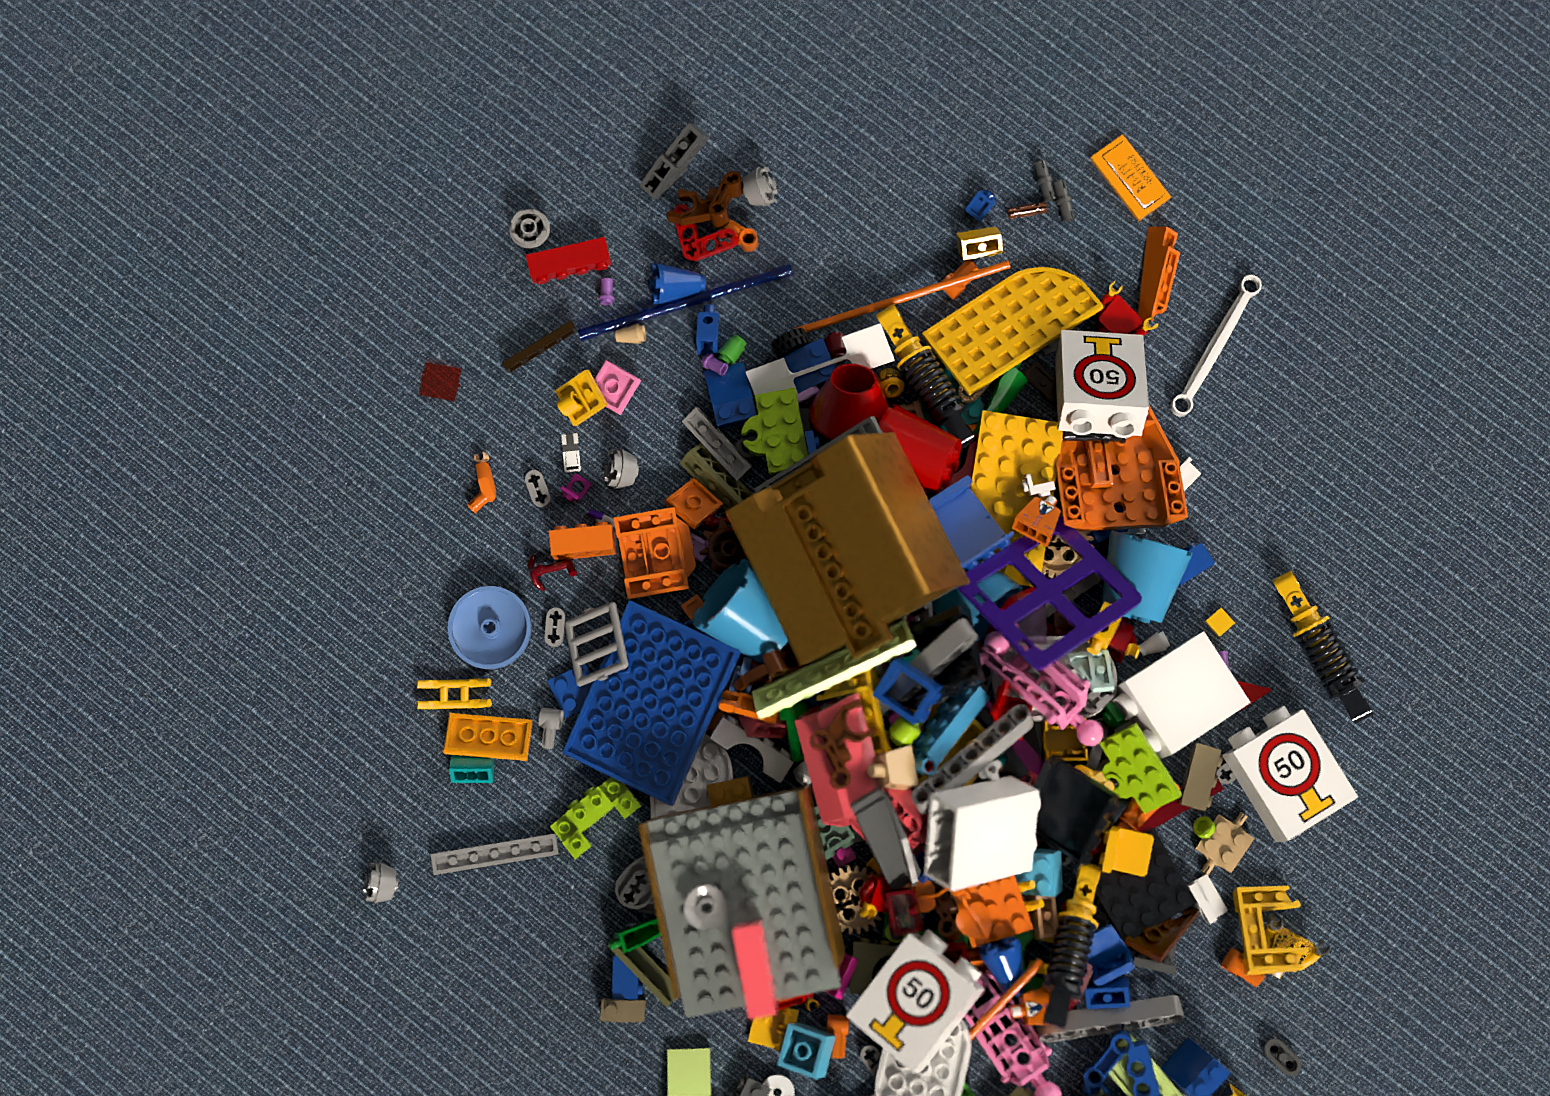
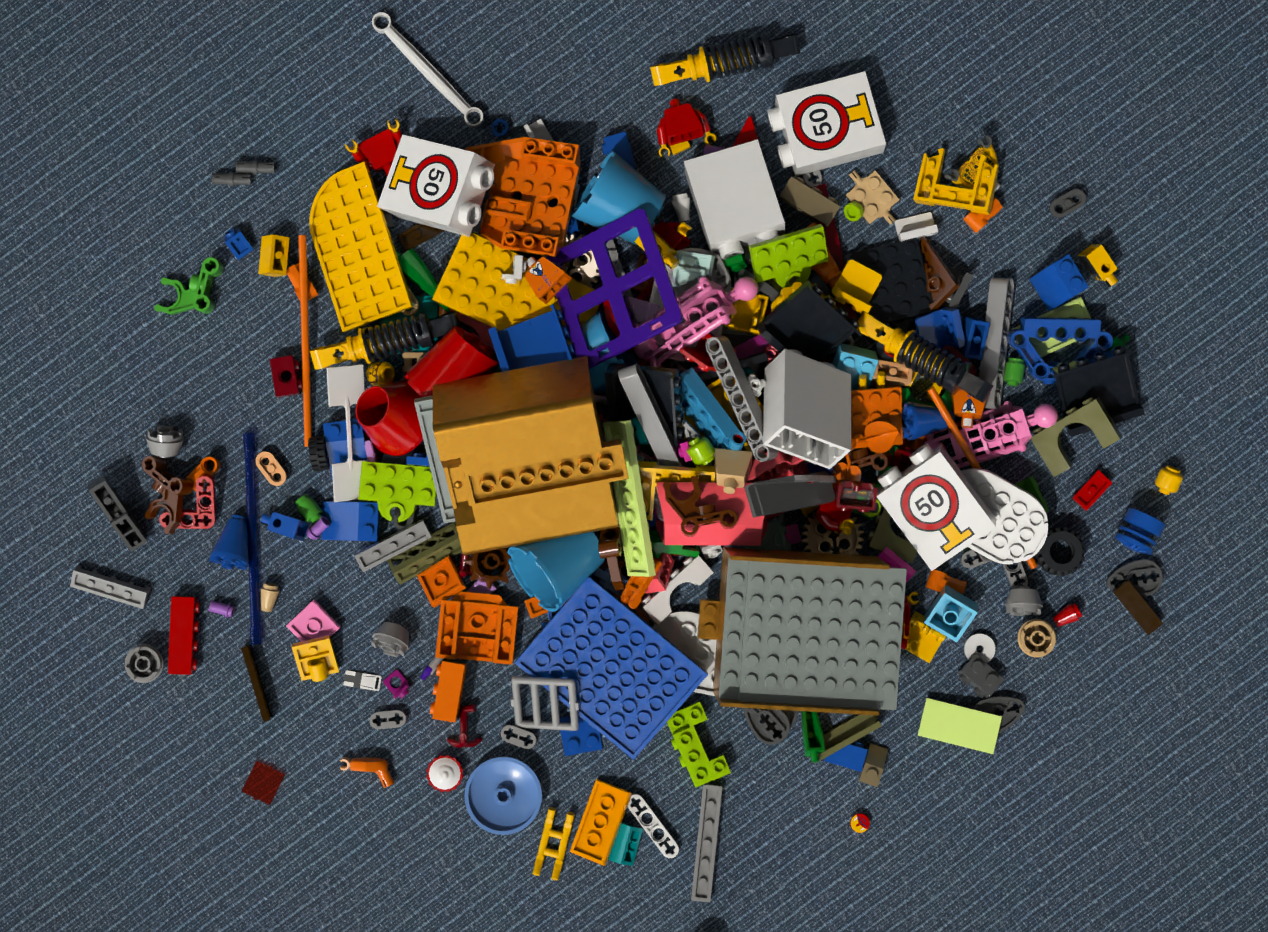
camera: 75 degrees left, 5 degrees up
(496, 561) = (444, 773): none -> white piece
(498, 792) = (655, 823): none -> white beam
(550, 720) = (602, 762): light grey axle -> none
(558, 1012) = (859, 823): none -> tile
(597, 176) = (109, 587): none -> light grey hinge
(706, 919) = (817, 663): light grey dish -> none
(755, 969) = (871, 638): coral brick -> none
(760, 301) = (271, 469): none -> light nougat plate
(835, 345) = (332, 414): dark red head -> none
(866, 280) = (278, 368): none -> dark red brick
(889, 679) = (654, 453): blue window -> none
(921, 179) = (198, 290): none -> bright green piece
(1027, 210) = (254, 202): reddish brown axle -> none
(1084, 1048) = (1014, 372): none -> bright green brick
(1130, 177) = (250, 100): light orange tile -> none
(1158, 271) = (345, 101): orange wedge -> none
(1181, 429) = (504, 131): none -> blue bush
(1240, 621) = (681, 125): none -> red torso

